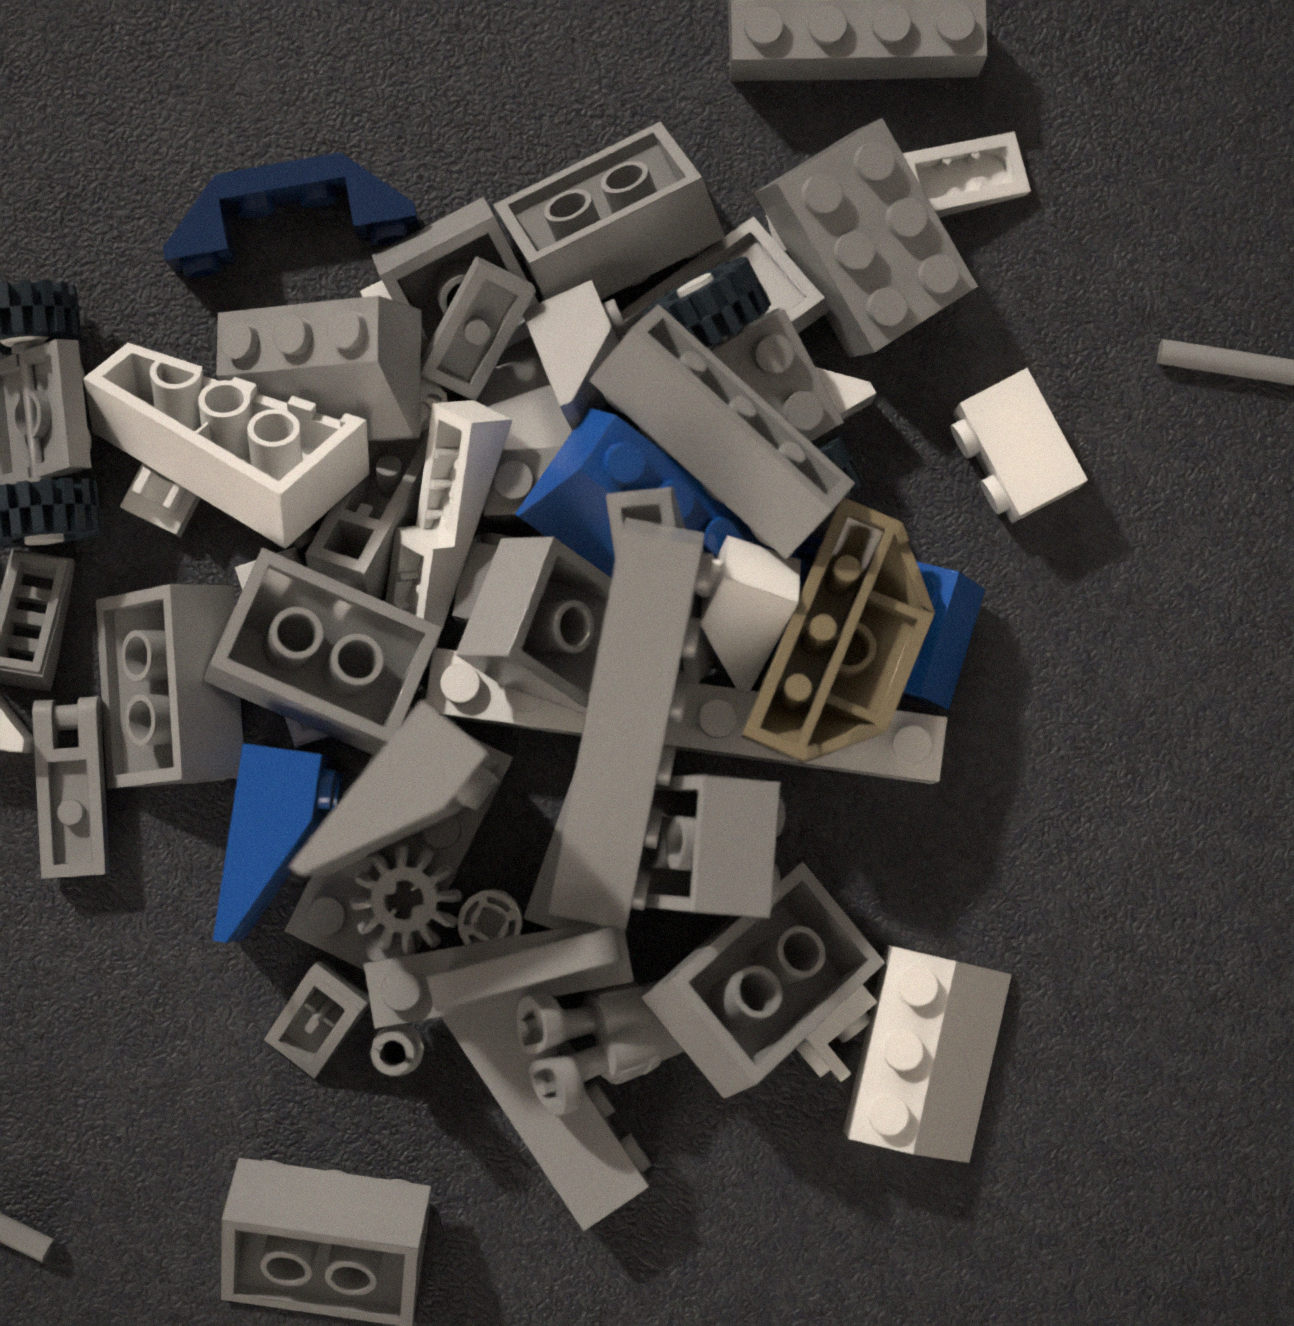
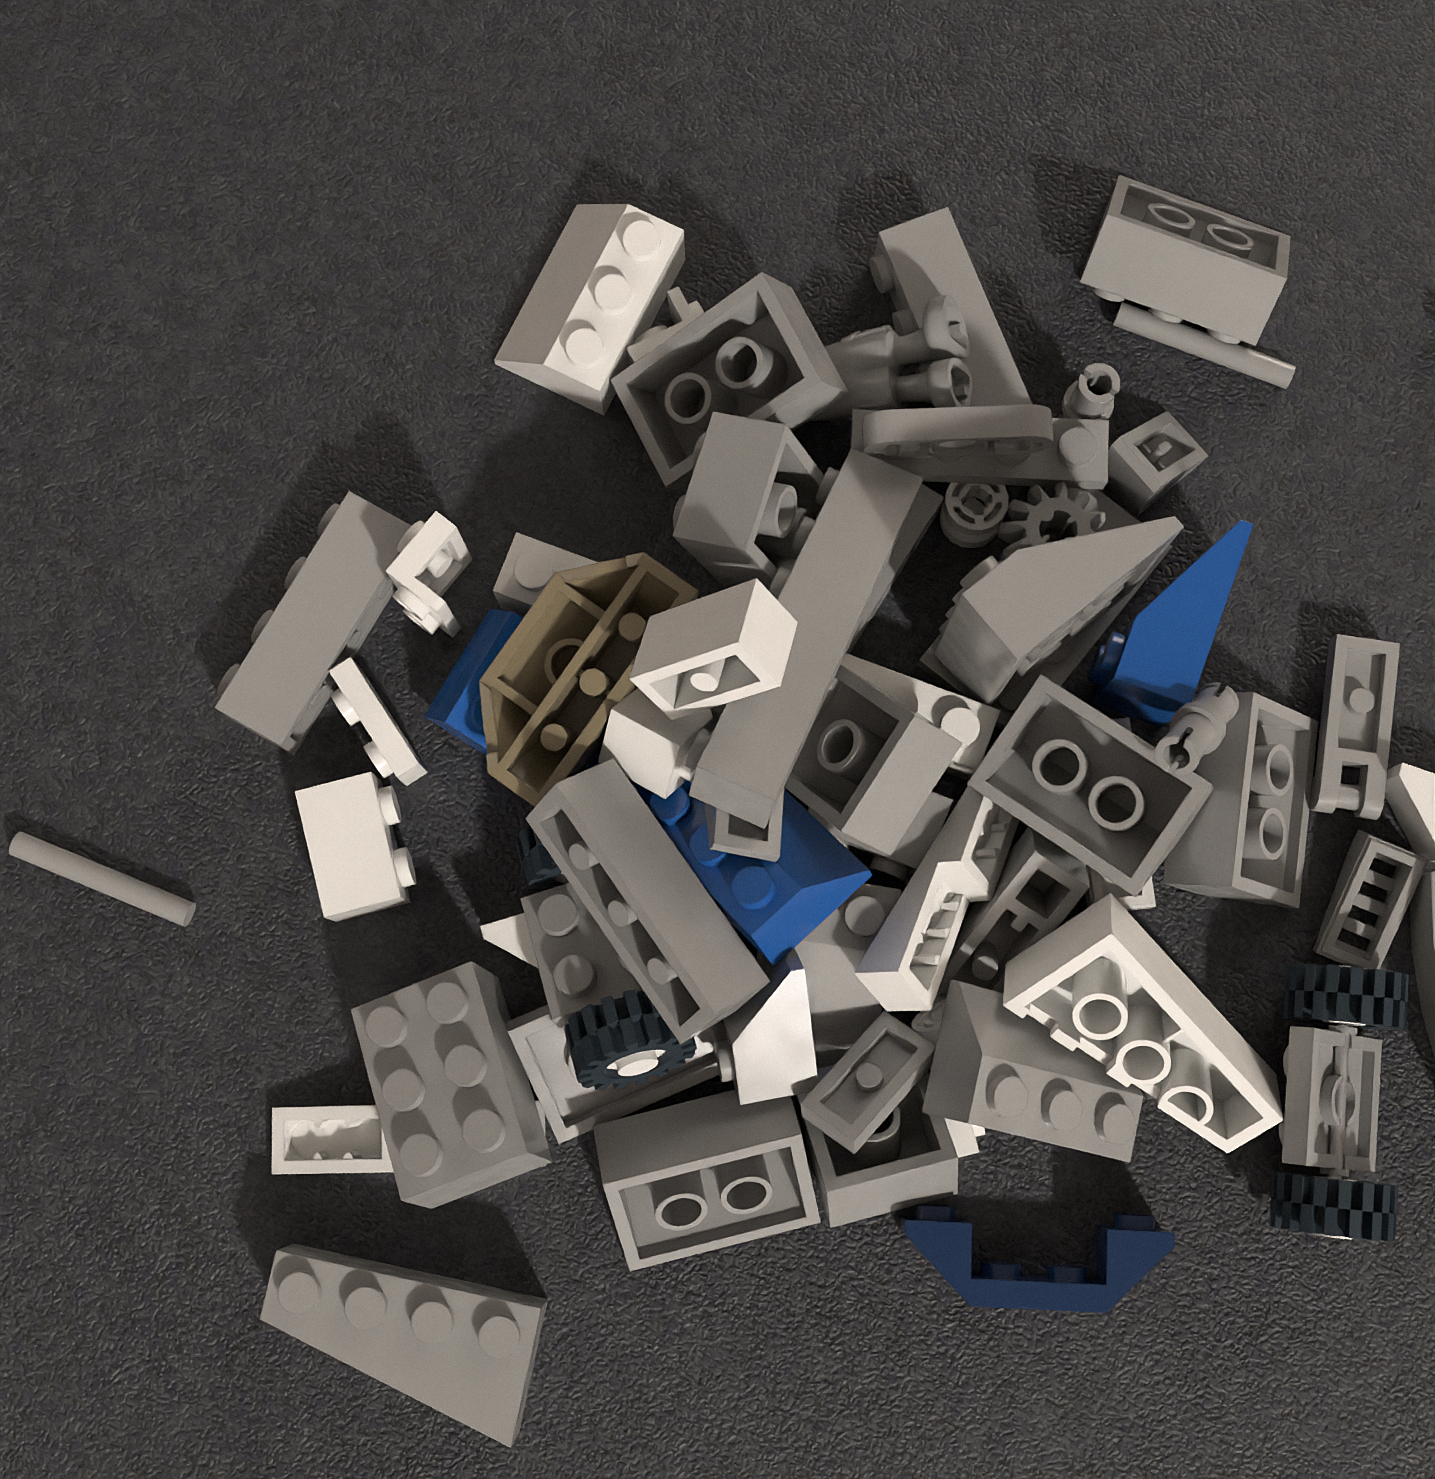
camera: 165 degrees left, 5 degrees down
(160, 501) = (1223, 987): white tile -> none
(231, 720) = (1197, 729): none -> light grey pin
(232, 1147) = (1204, 346): none -> light grey bar
(711, 666) = (714, 650): none -> white brick
(1020, 732) = (426, 567): none -> white bracket
(1048, 588) = (360, 702): none -> white plate
(1112, 657) = (317, 624): none -> light grey brick

